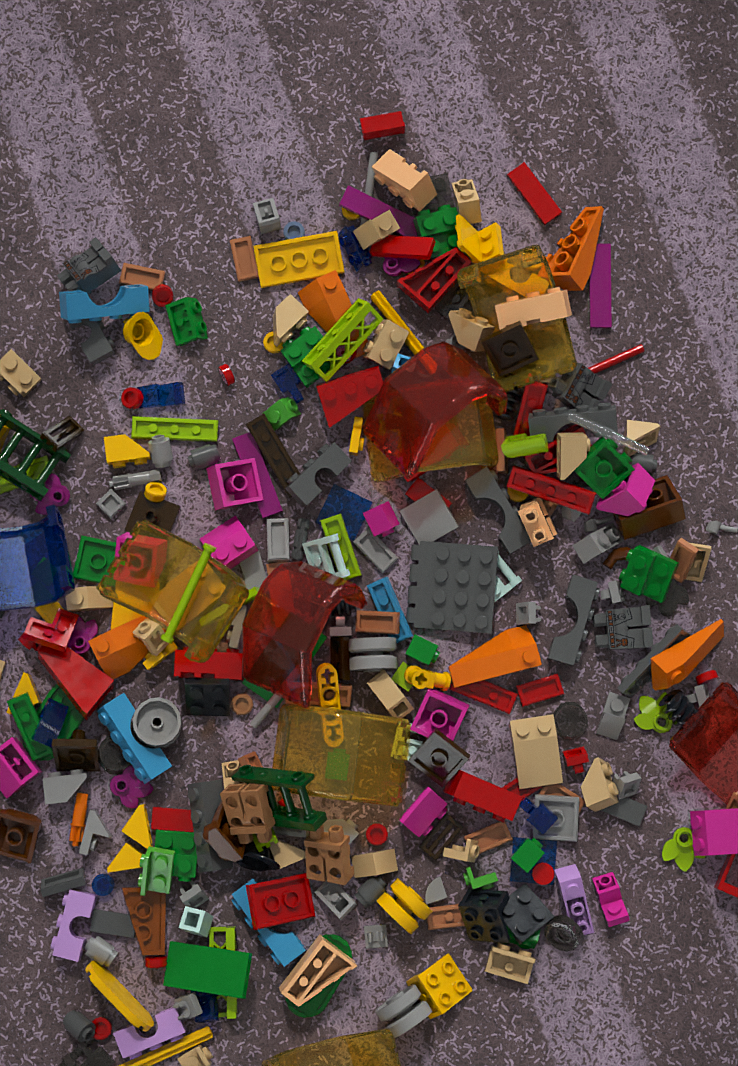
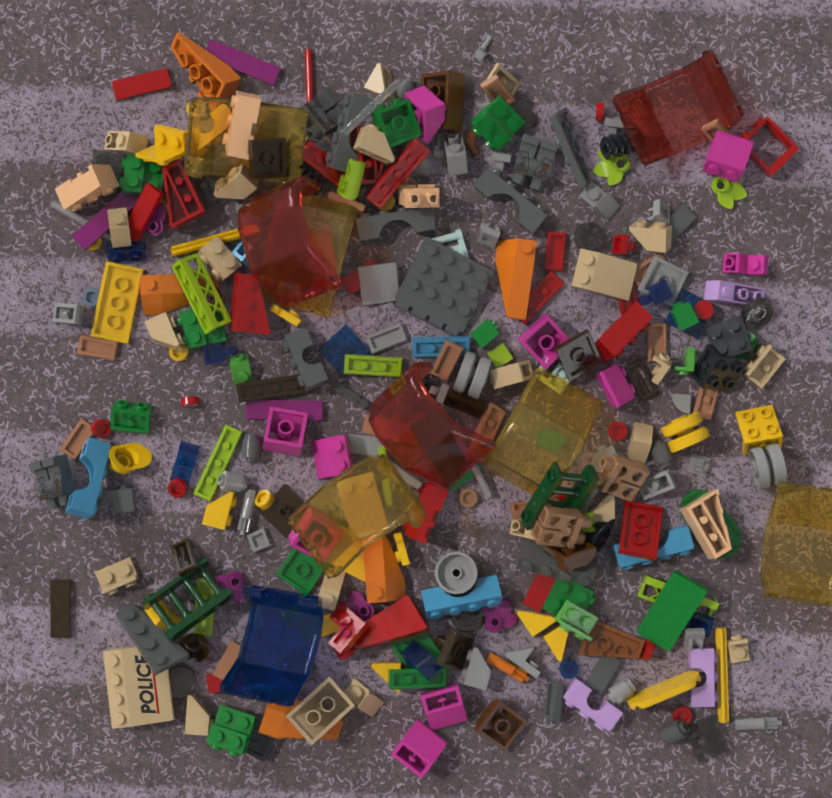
camera: 70 degrees left, 5 degrees up
(150, 634) = (384, 548): tan bracket -> none
(168, 636) = (362, 505): lime bar -> none
(193, 897) = (608, 598): light grey tile -> none
(196, 921) = (629, 605): light aqua brick -> none
(207, 696) = (451, 523): black plate -> none
(278, 540) = (345, 414): light grey tile -> none
(319, 557) = (372, 385): light aqua plate -> none
(333, 678) = (499, 422): yellow beam -> none
(381, 519) = (364, 322): dark pink brick -> none
(382, 125) = (31, 186): red panel -> none
(427, 678) = (509, 339): yellow connector -> none
(680, 659) = (578, 127): orange wedge -> none

